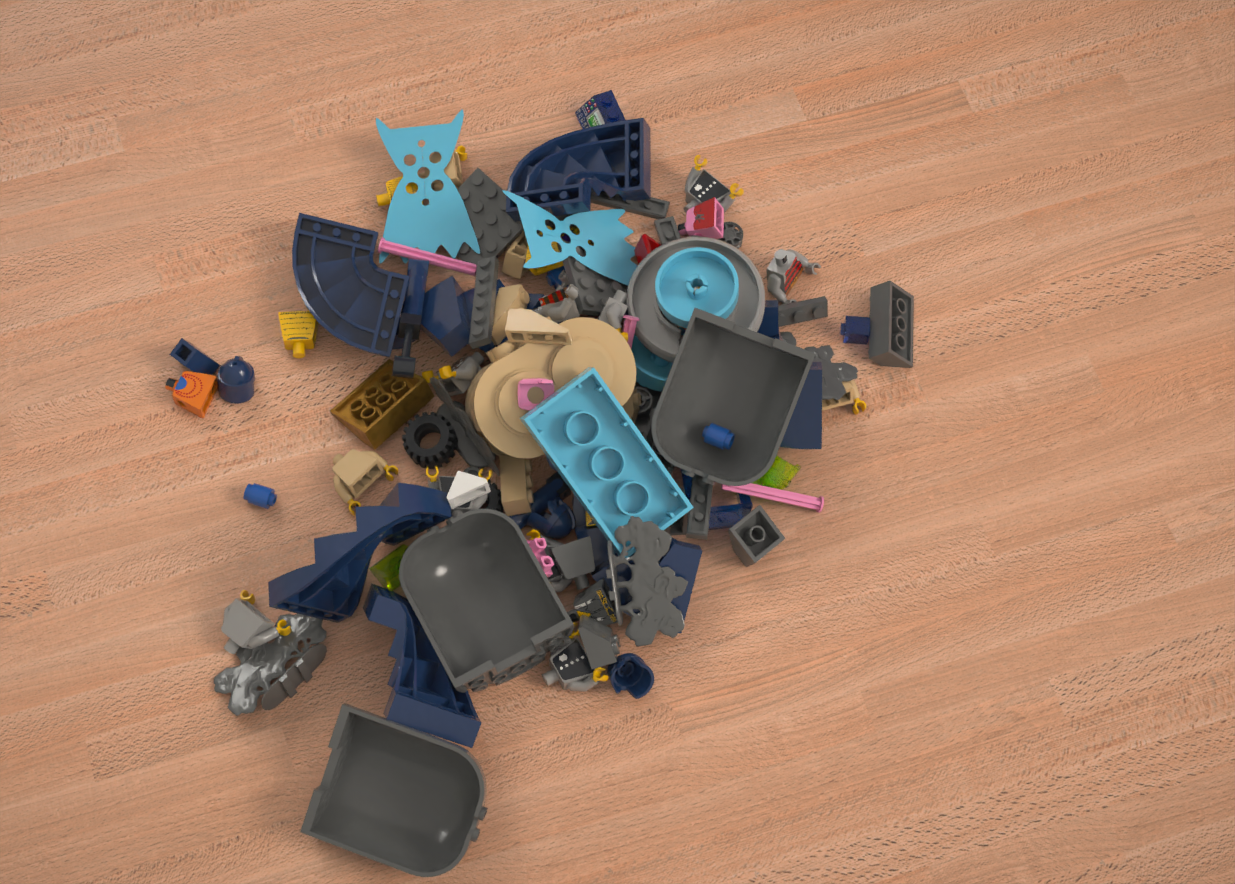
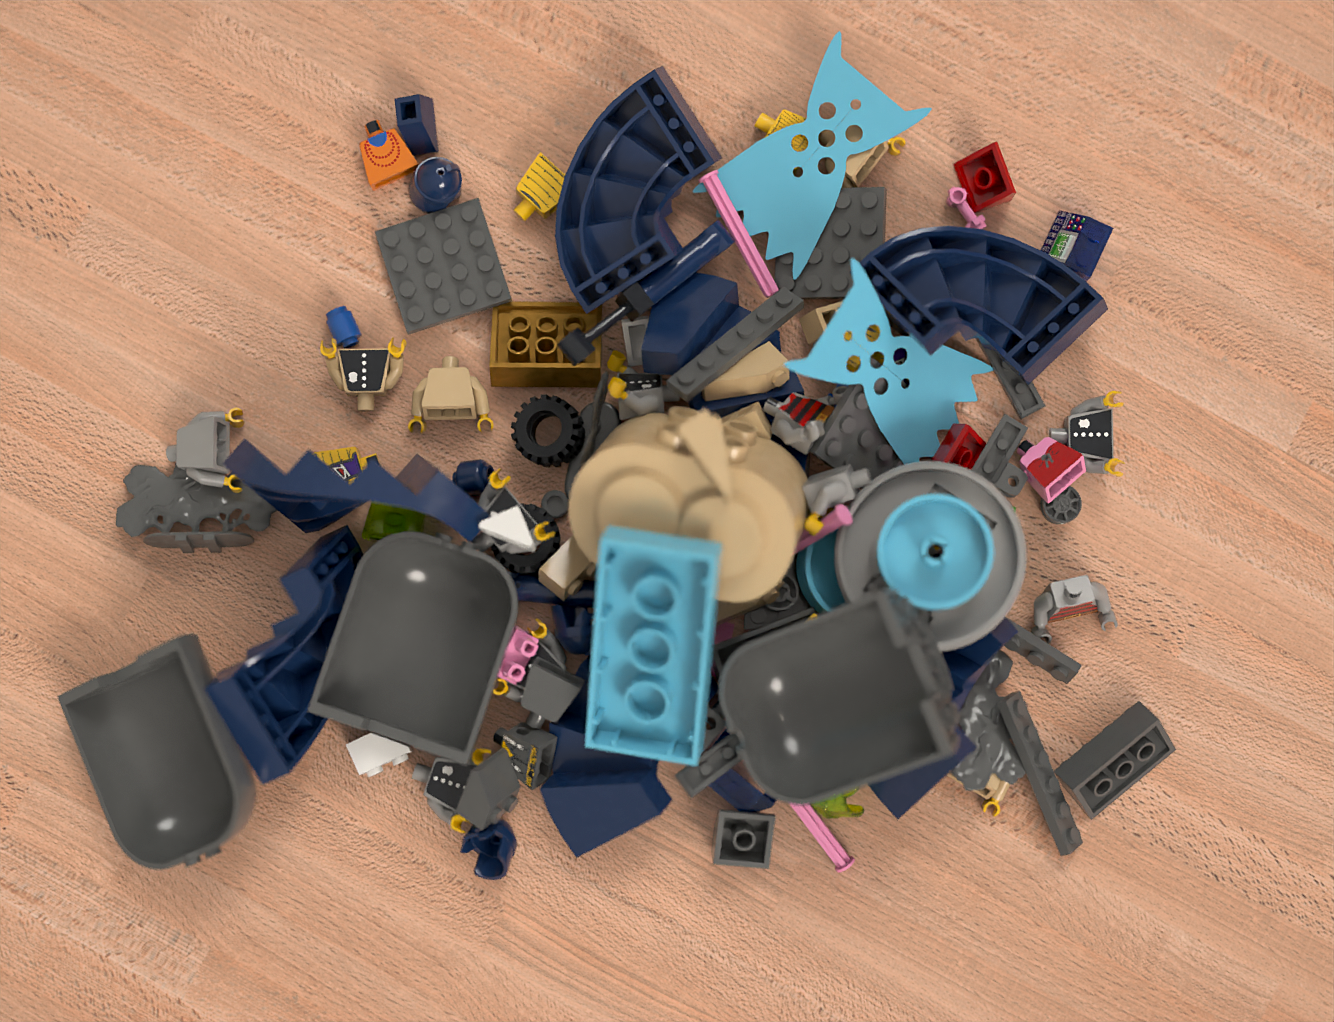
camera: 50 degrees right, 20 degrees up
(283, 417) = (443, 266): none -> dark grey plate
(296, 505) = (365, 371): none -> torso
(428, 355) = (633, 338): none -> white slope
(512, 691) = (374, 751): none -> white slope
(518, 149) = (956, 199): none -> bright pink bar
(523, 126) = (985, 178): none -> red slope
(524, 386) = (663, 520): bright pink piece -> none
(650, 585) = (582, 792): dark grey plant -> none
(718, 436) = (805, 713): blue brick -> none
(855, 330) = (1075, 727): clear blue brick -> none
(856, 359) = (1040, 773): none -> dark grey plate

